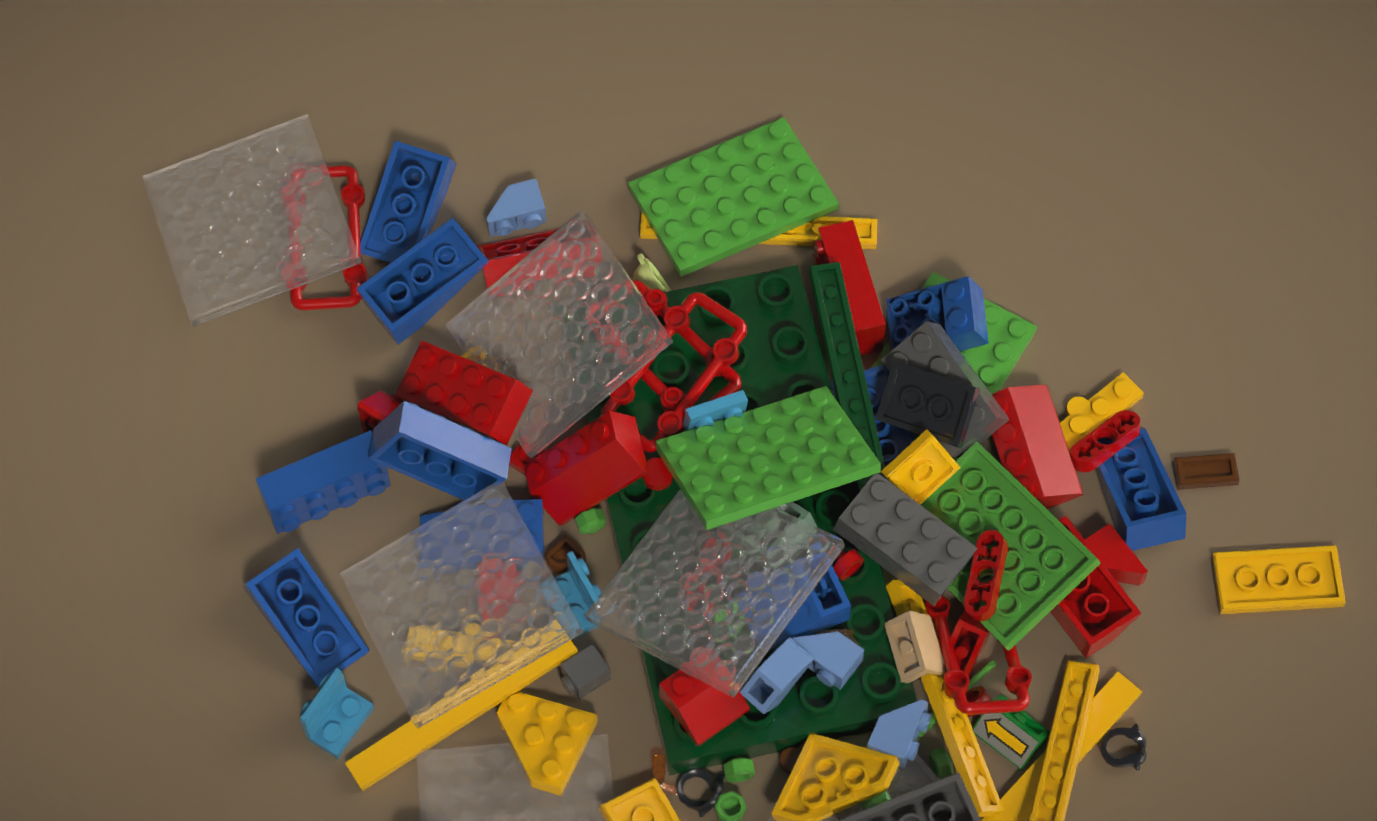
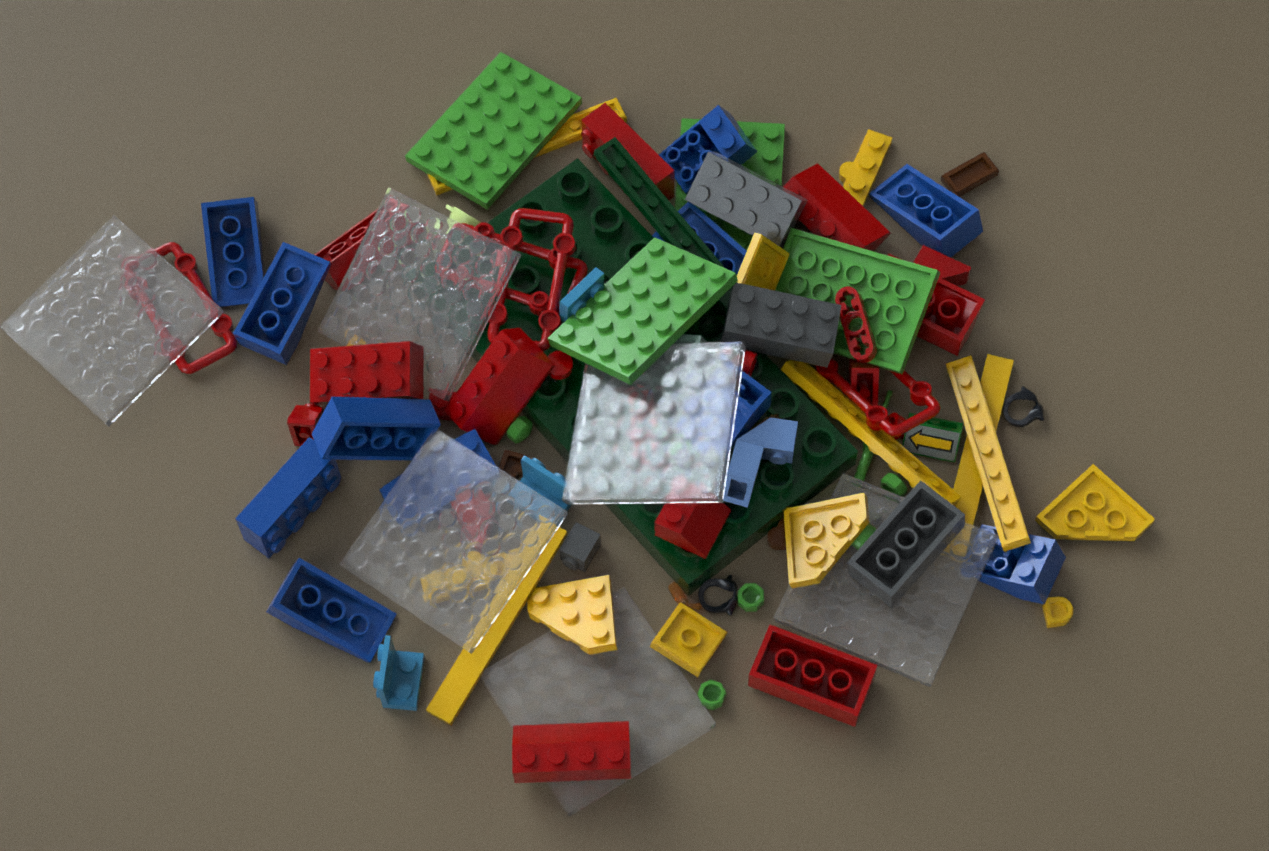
camera: 25 degrees left, 0 degrees up
(517, 209) = (327, 214): medium blue slope -> none
(739, 770) = (741, 564): bright green tile -> none
(898, 731) = (852, 472): medium blue slope -> none
(915, 646) = (829, 404): tan panel -> none
(929, 402) = (741, 212): black plate -> none
(1111, 430) = (882, 176): red beam -> none
(1278, 579) = (1067, 231): yellow tile -> none

